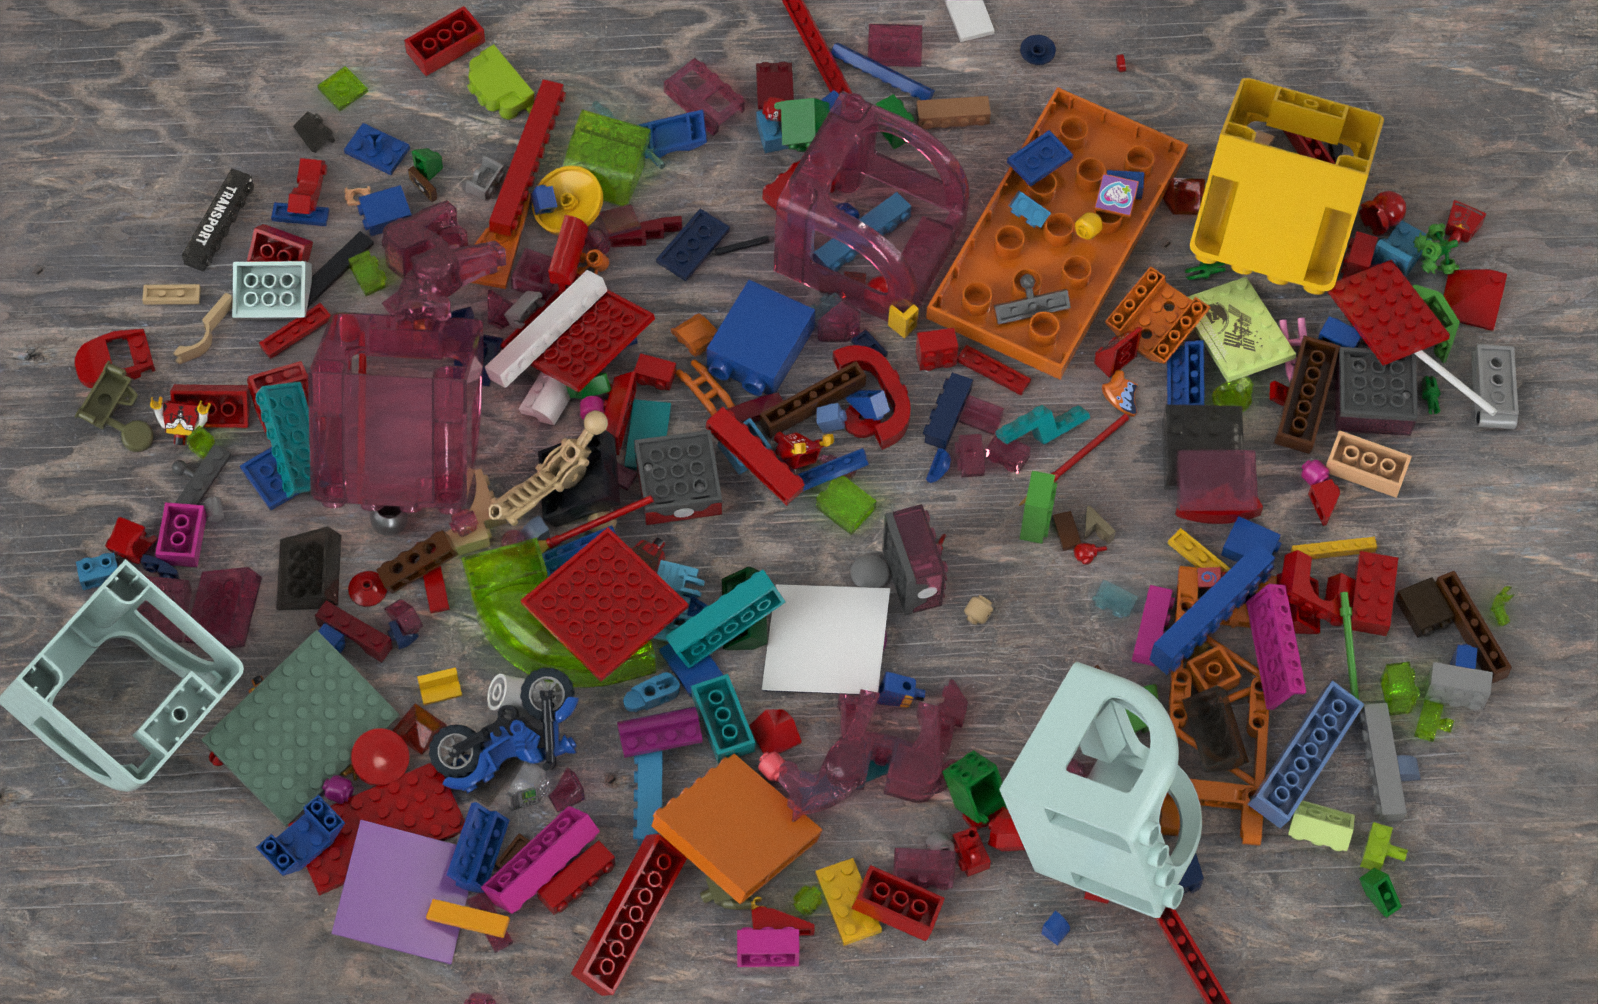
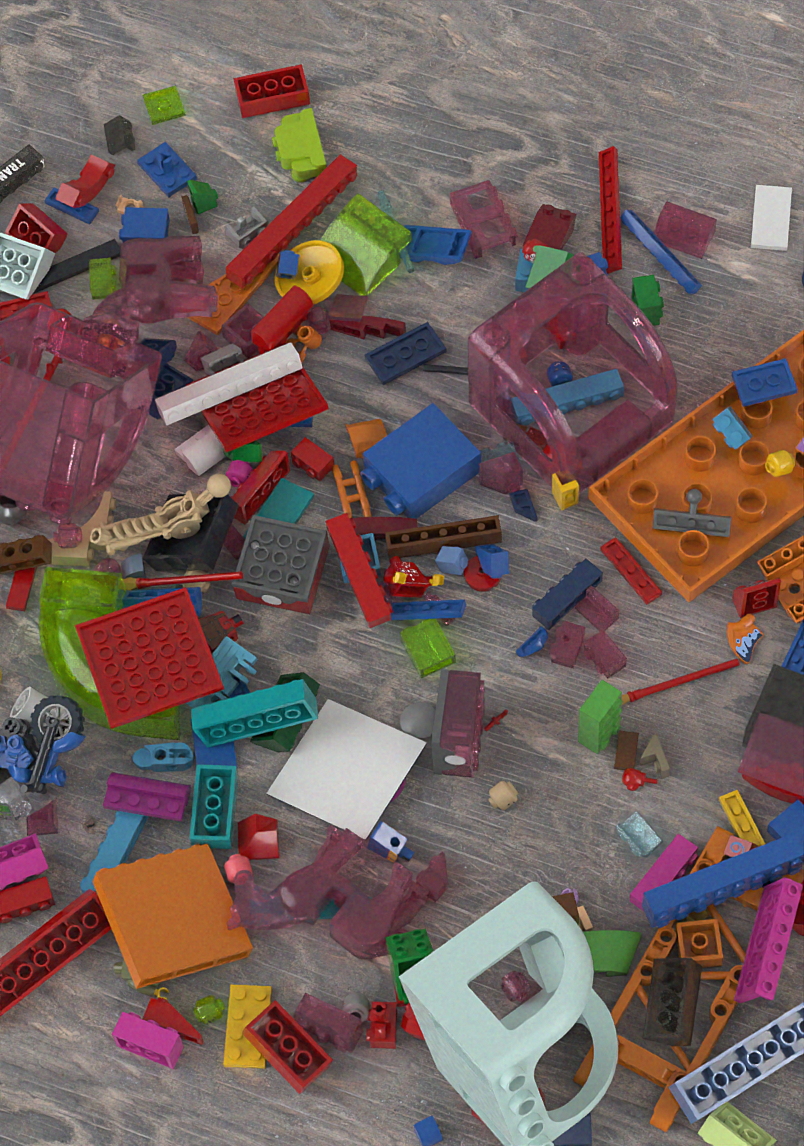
camera: 30 degrees right, 0 degrees up
(870, 360) = (512, 590): red arch -> none
(936, 349) = (582, 531): red brick -> none
(953, 112) = (709, 311): medium nougat brick -> none
(1042, 424) = (649, 639): teal bracket -> none

